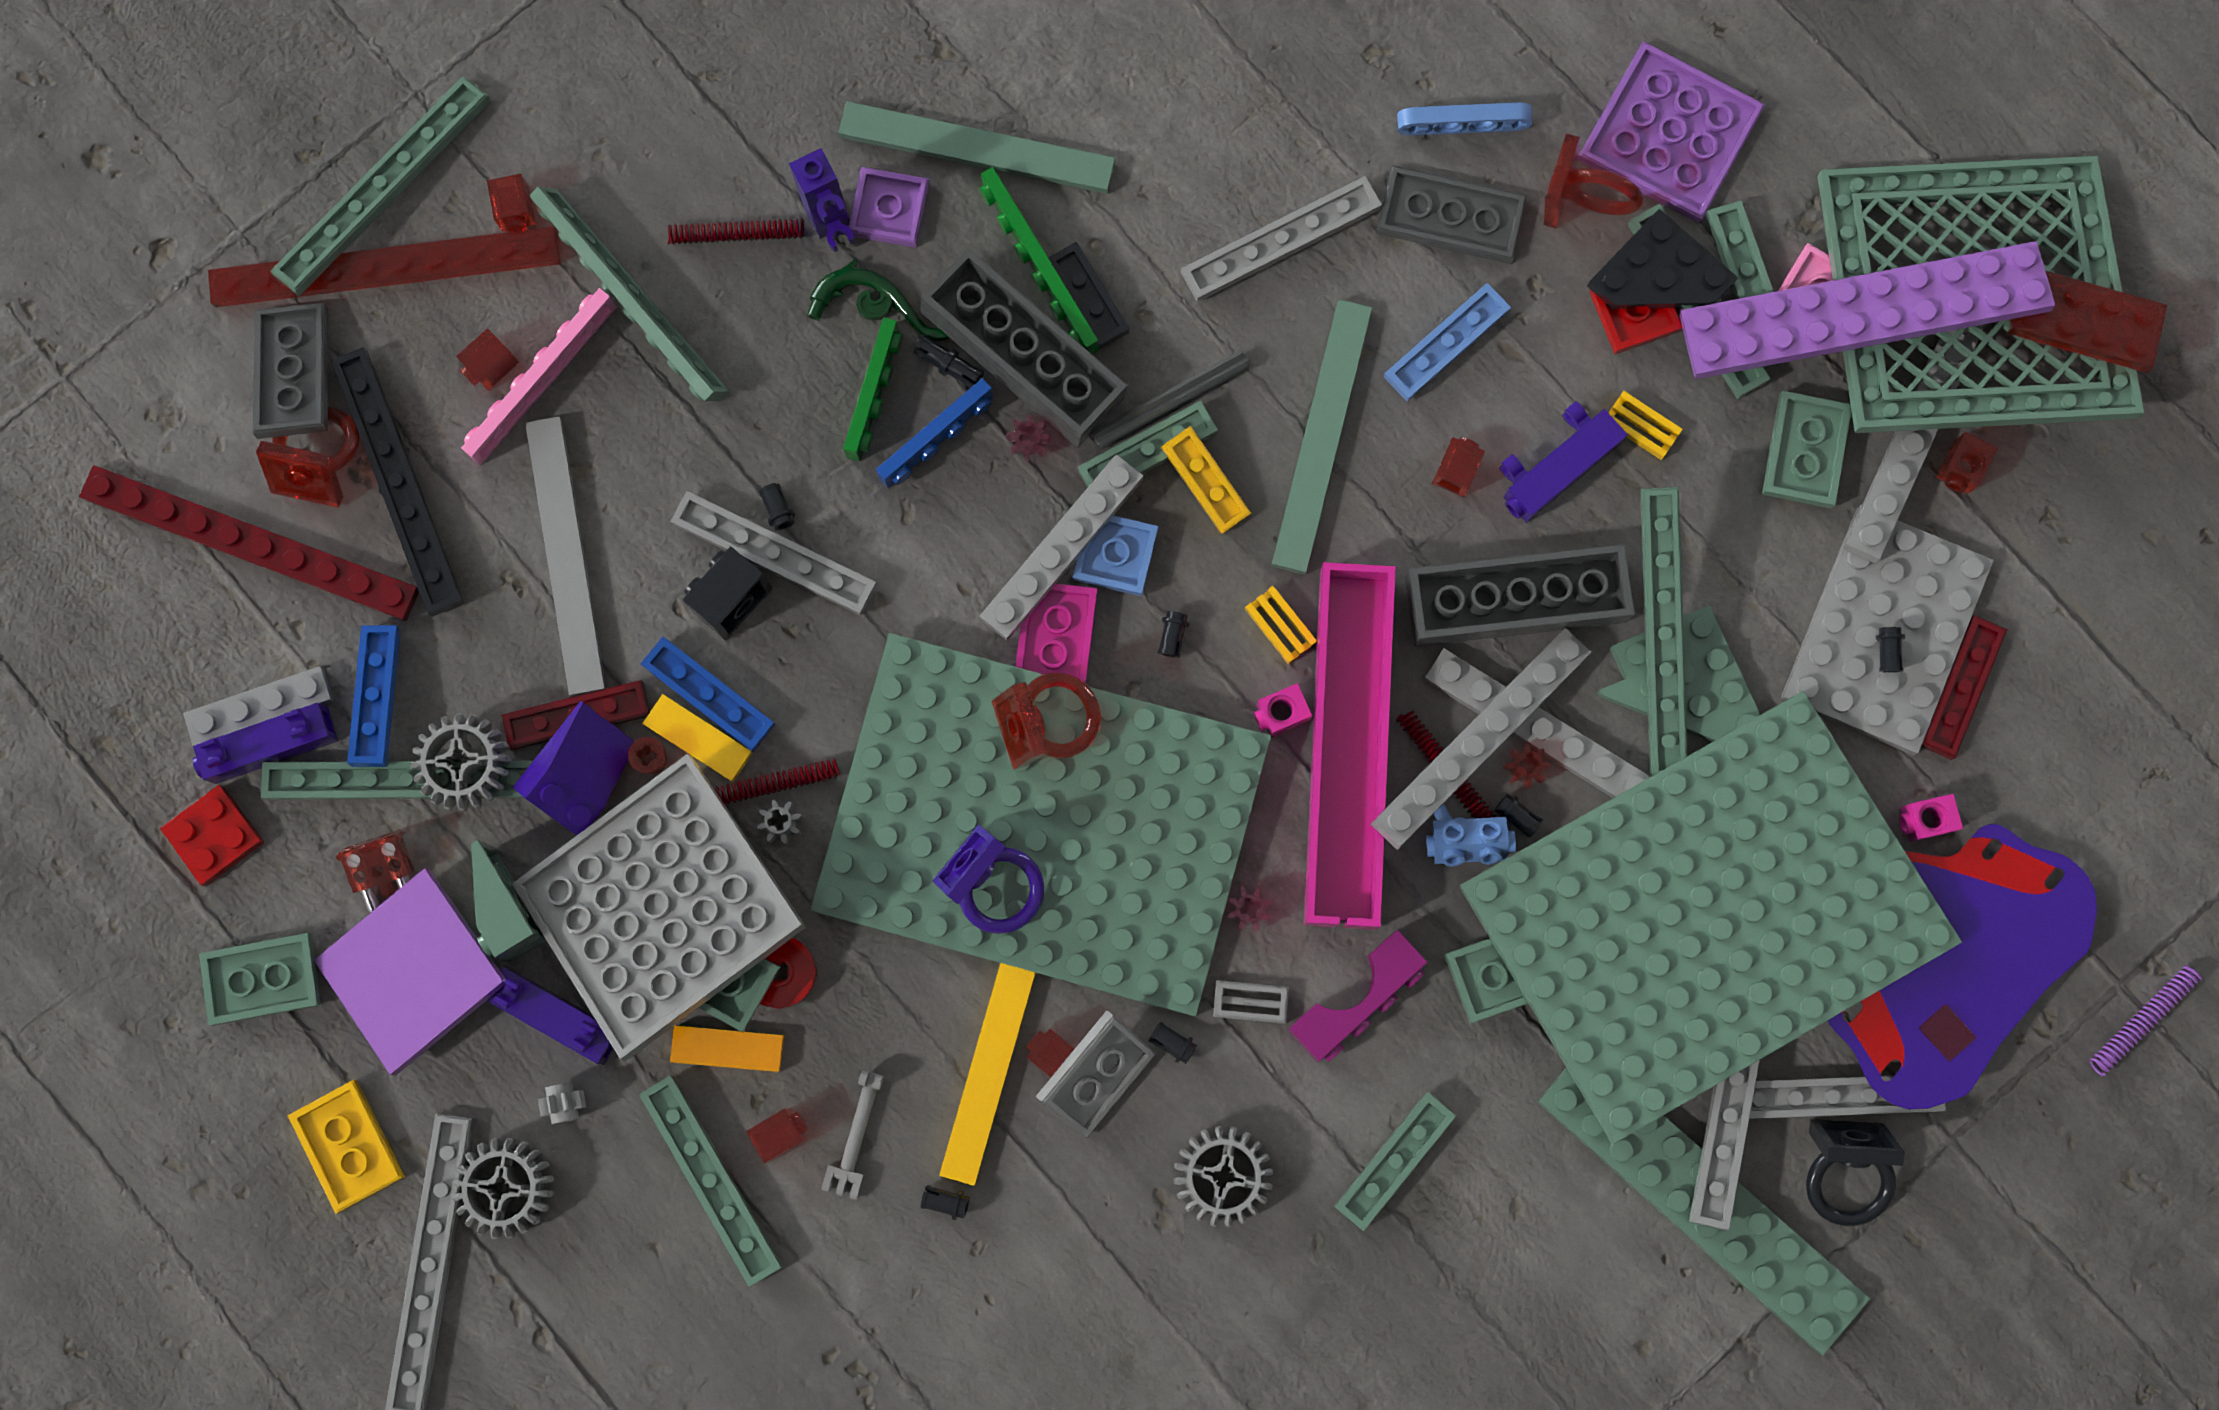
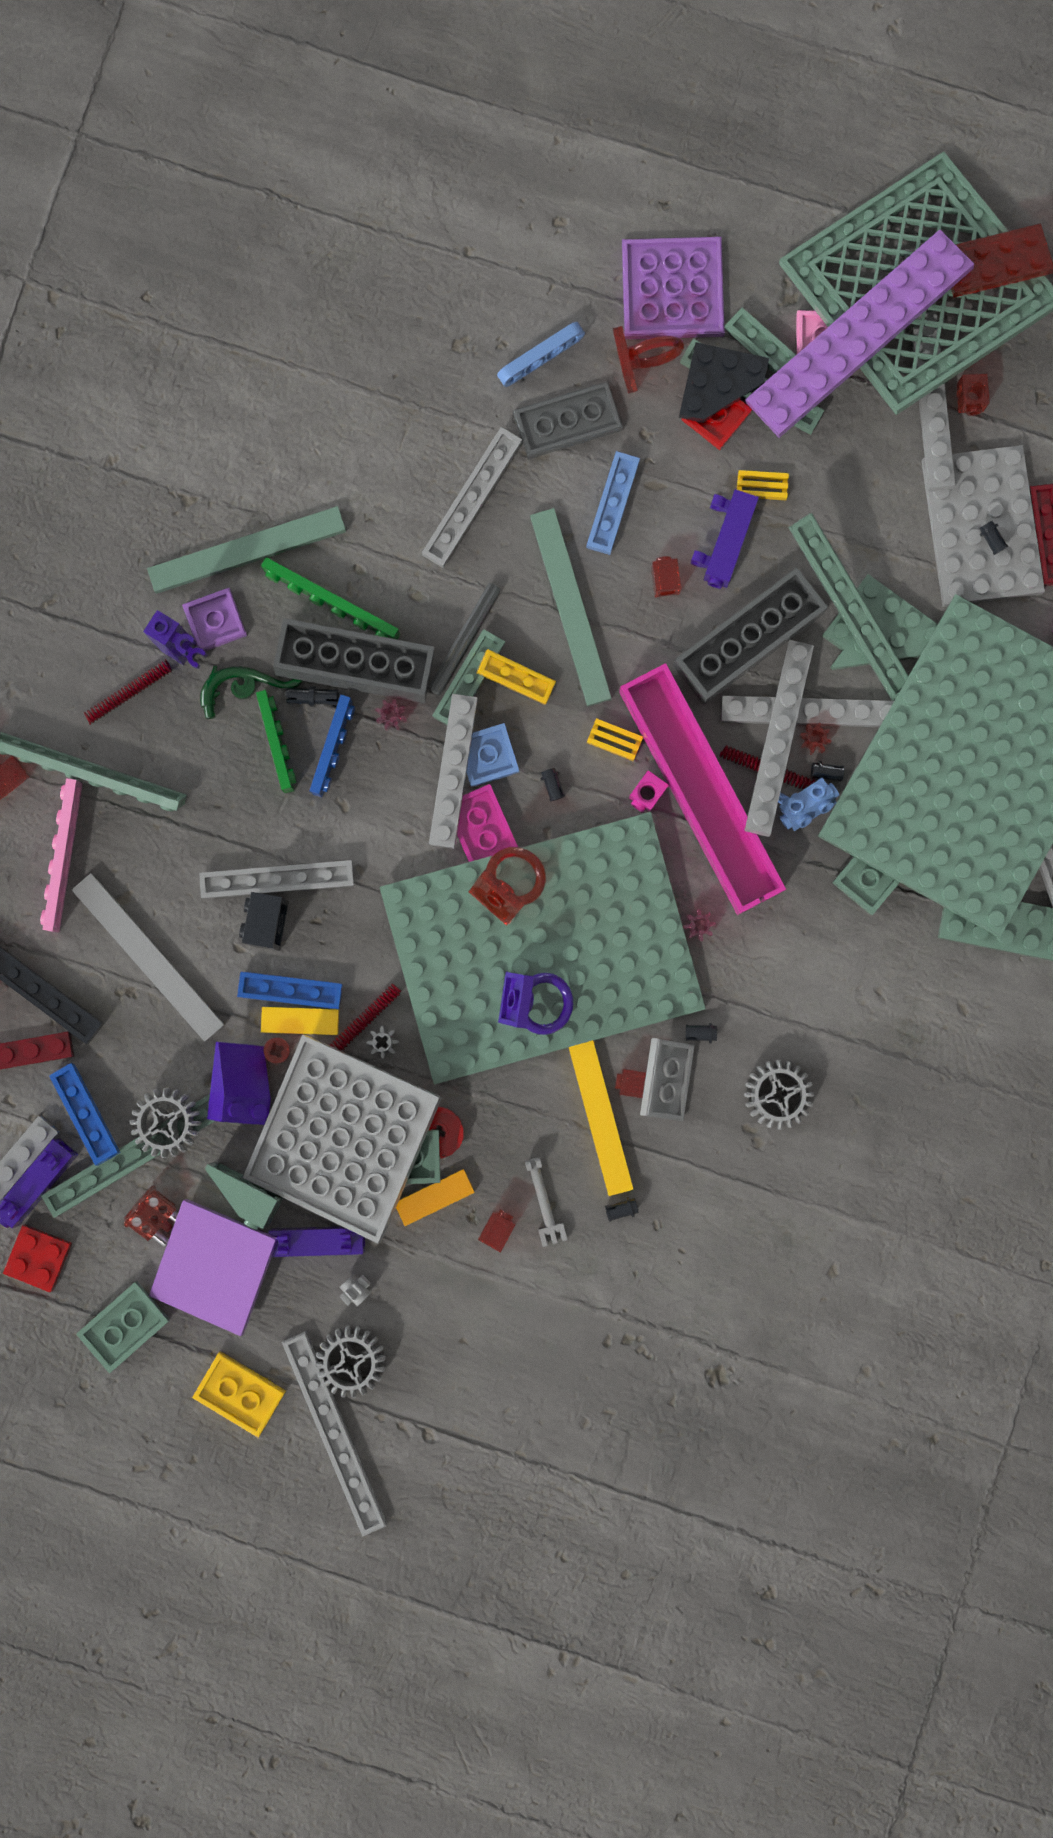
camera: 25 degrees left, 5 degrees up
(486, 360) = (22, 865): clear red brick -> none
(541, 722) = (200, 1065): dark red tile -> none
(710, 1180) = (473, 1281): sand green plate -> none
(780, 515) = (260, 849): black pin -> none
(1089, 294) = (374, 602): black plate -> none
(1219, 999) = (712, 989): light grey tile -> none
(1391, 965) = (805, 907): magenta arch -> none
(1395, 1161) = (875, 1024): sand green plate -> none
(1807, 449) = (871, 441): sand green plate -> none

